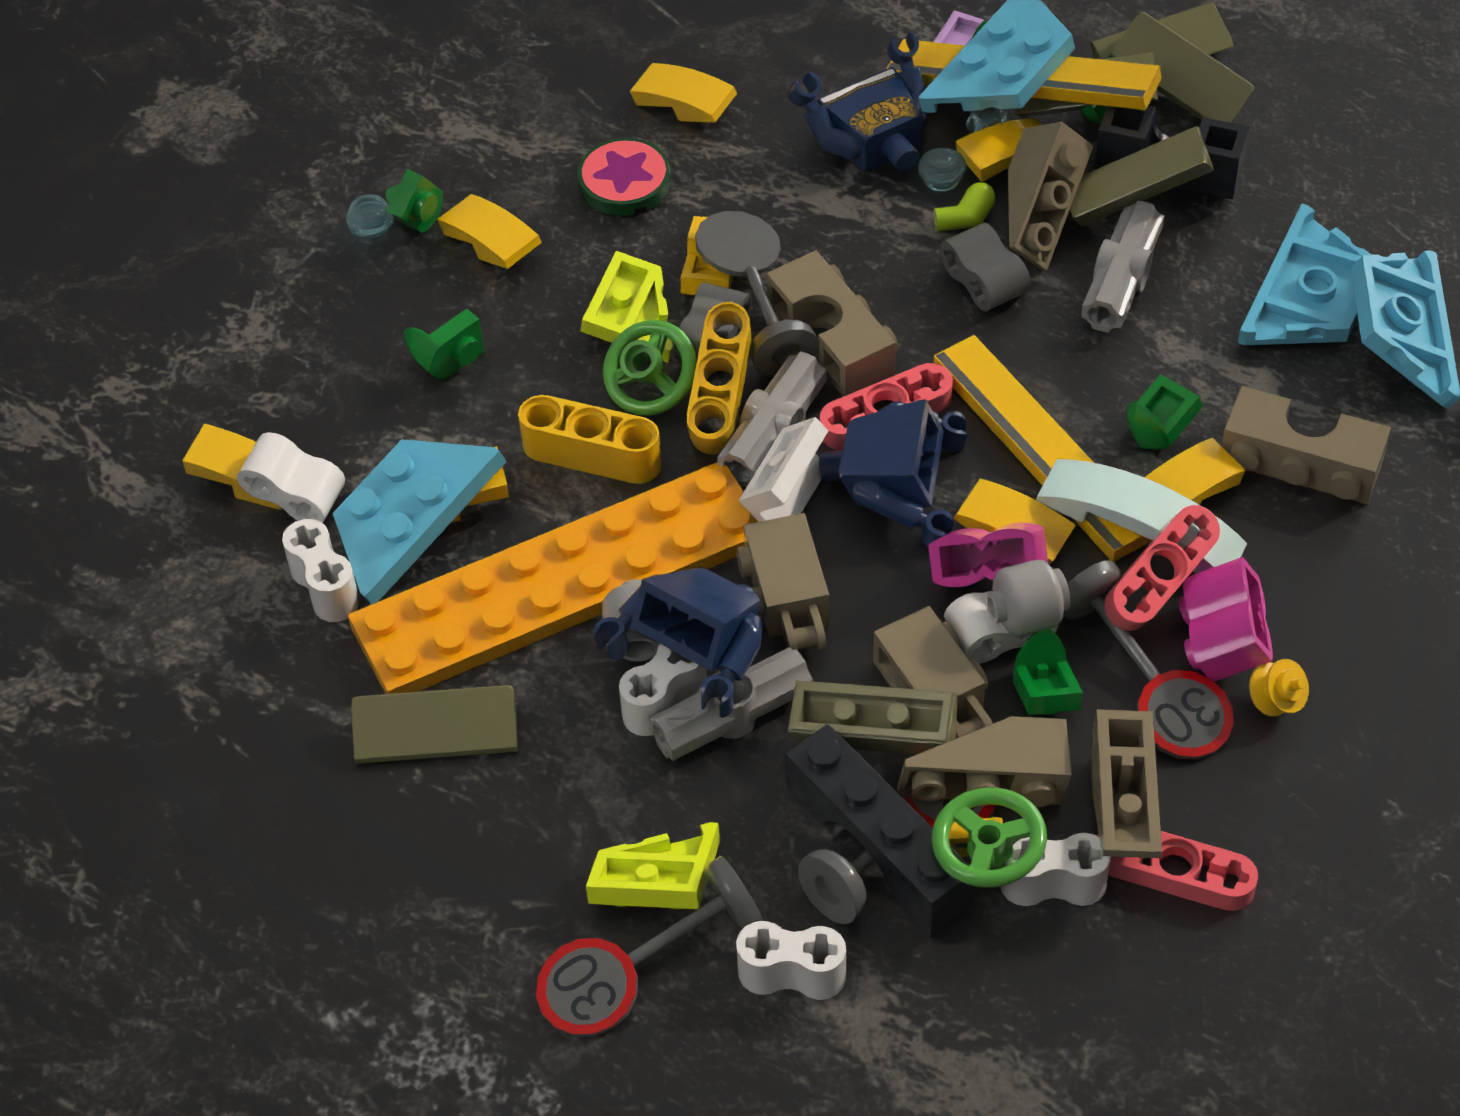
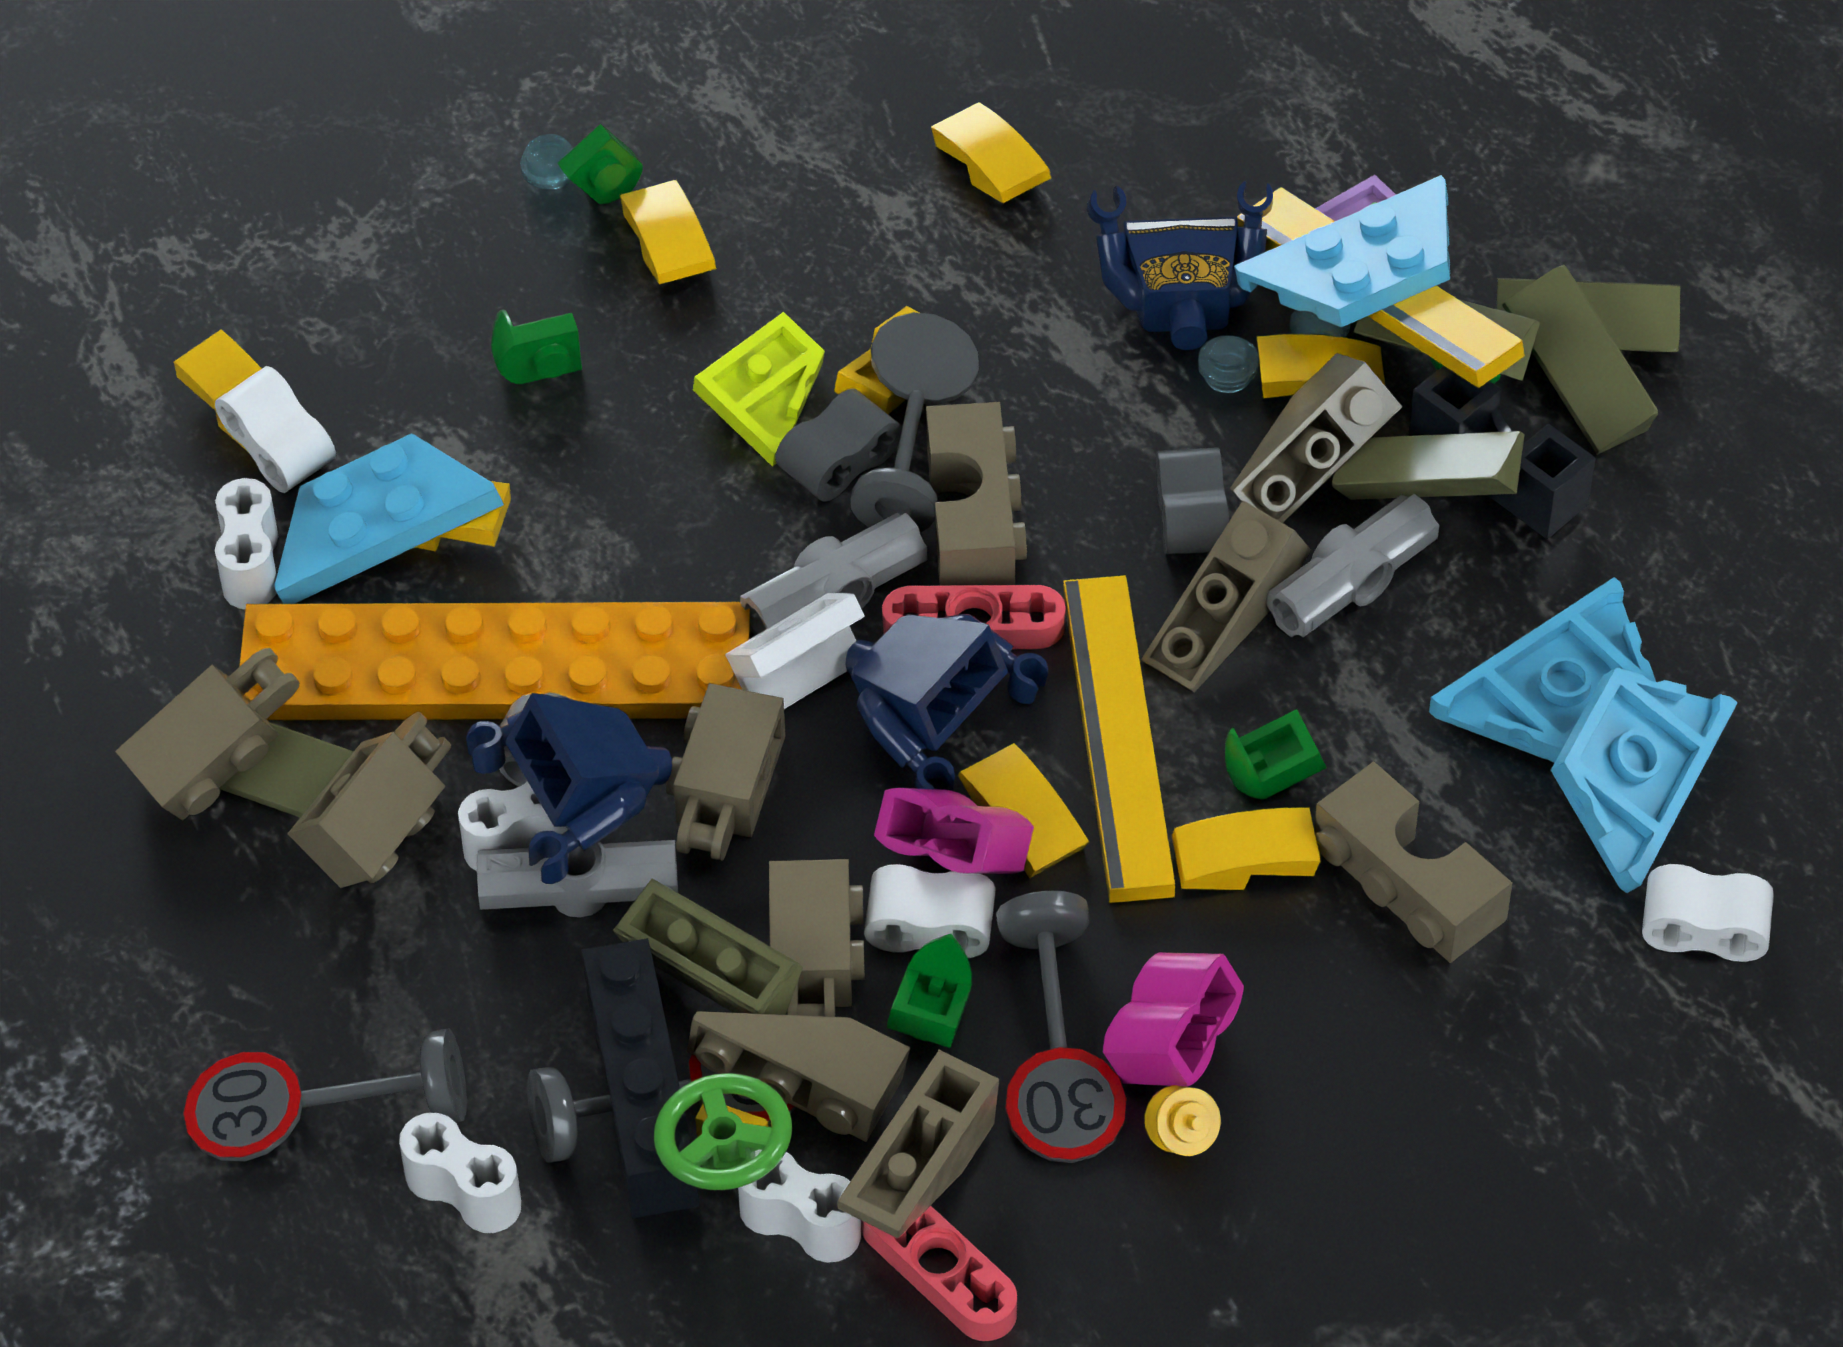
camera: 25 degrees right, 0 degrees up
(392, 719) = (208, 734): none -> dark tan brick
(547, 717) = (373, 804): none -> dark tan brick
(590, 439) = (620, 518): yellow beam -> none
(624, 176) = (861, 227): tile -> none
(632, 356) = (730, 456): bright green piece -> none
(654, 872) = (382, 1016): neon yellow wing -> none
(713, 356) = (792, 478): yellow beam -> none
(970, 211) = (1226, 426): lime arm -> none
(1028, 597) = (946, 895): light grey head -> none
(1054, 320) = (1226, 596): none -> dark tan slope
(1129, 502) = (1169, 860): light aqua slope -> none
(1141, 574) = (1082, 932): coral beam -> none

